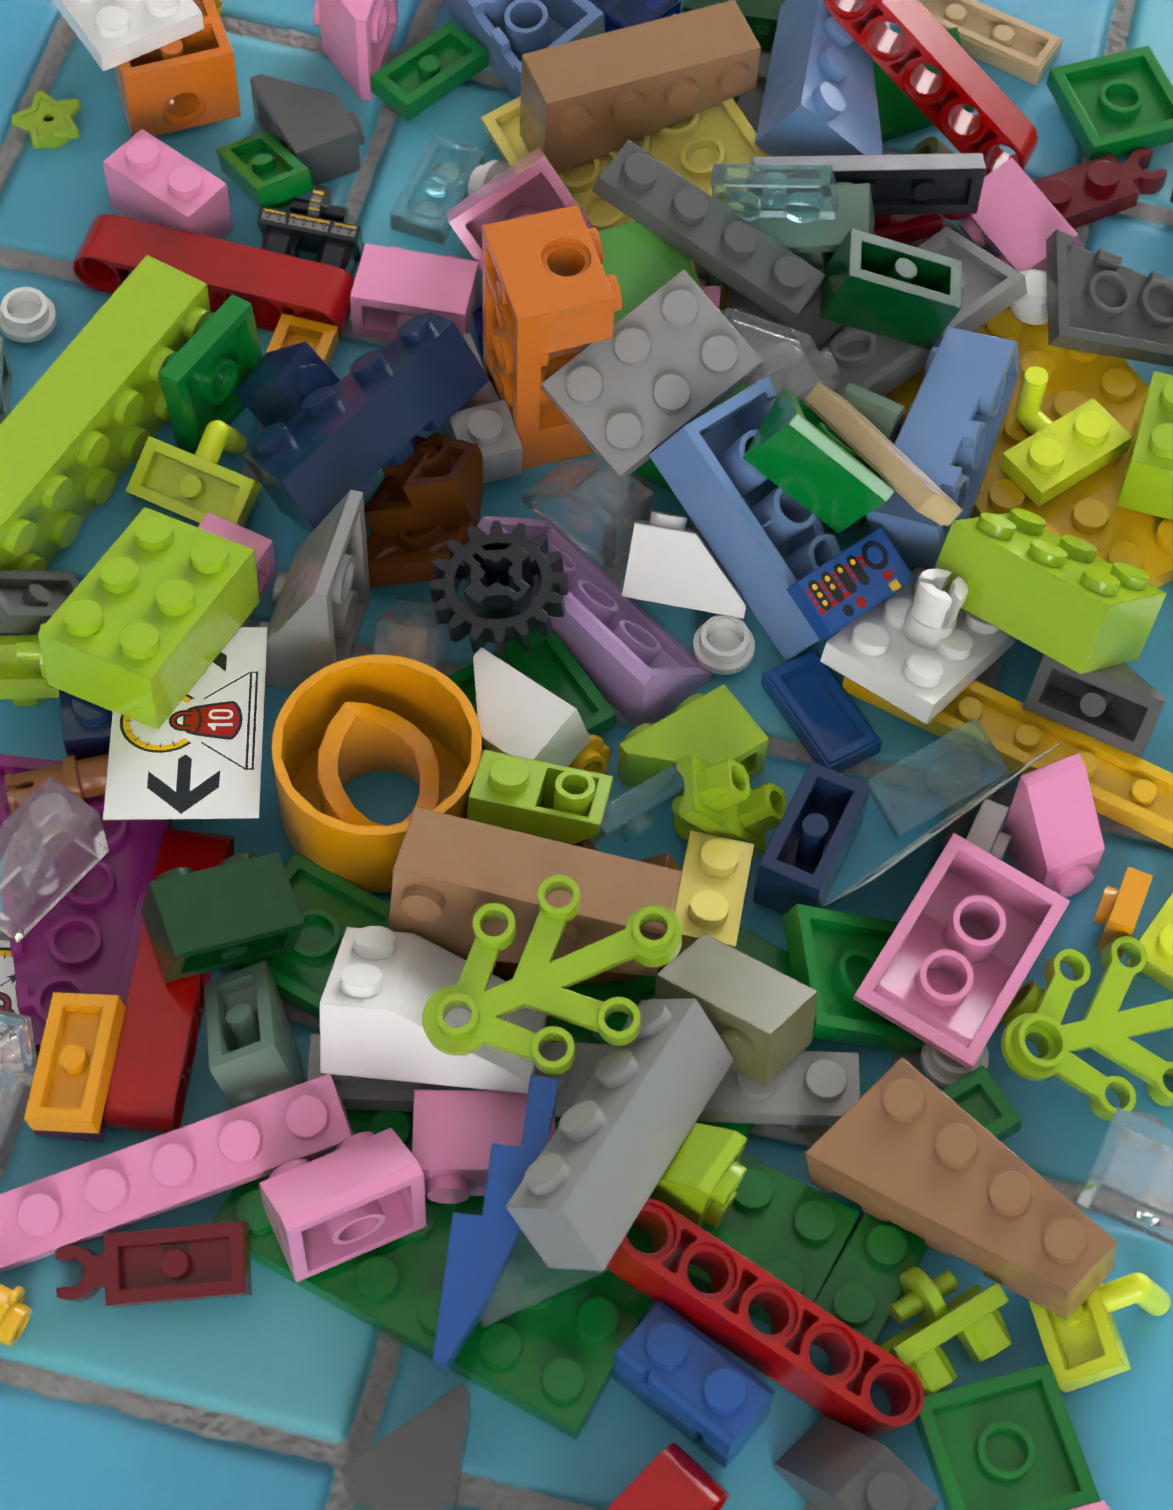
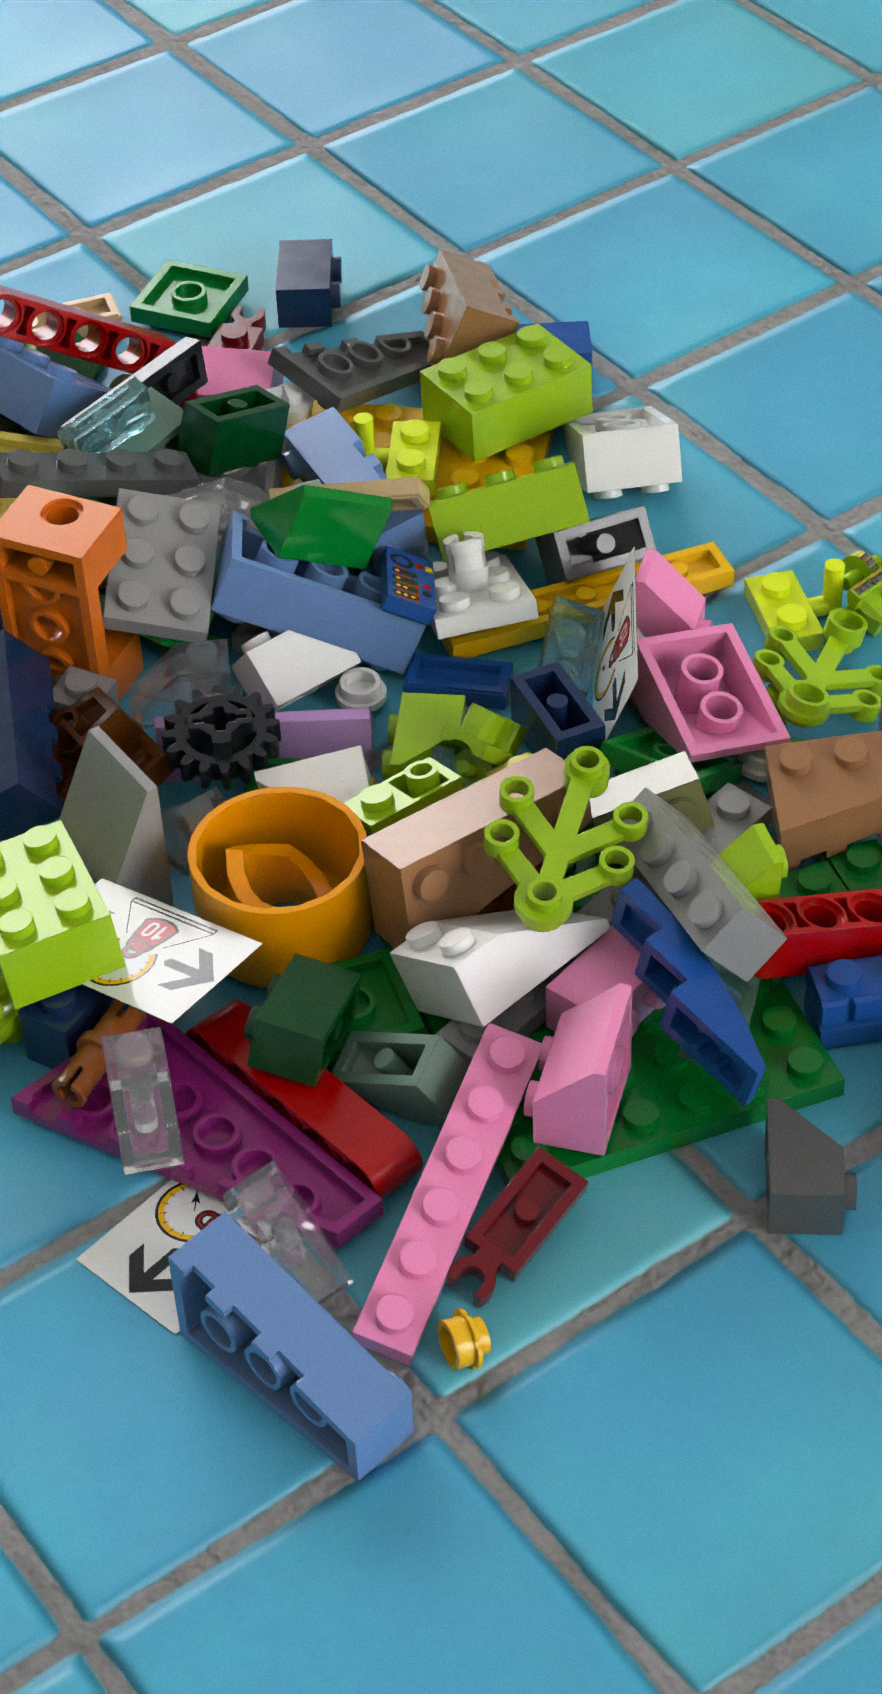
camera: 45 degrees left, 15 degrees down
(75, 1063) = (325, 1169): light orange plate -> none
(1121, 907) = (749, 621): light orange plate -> none

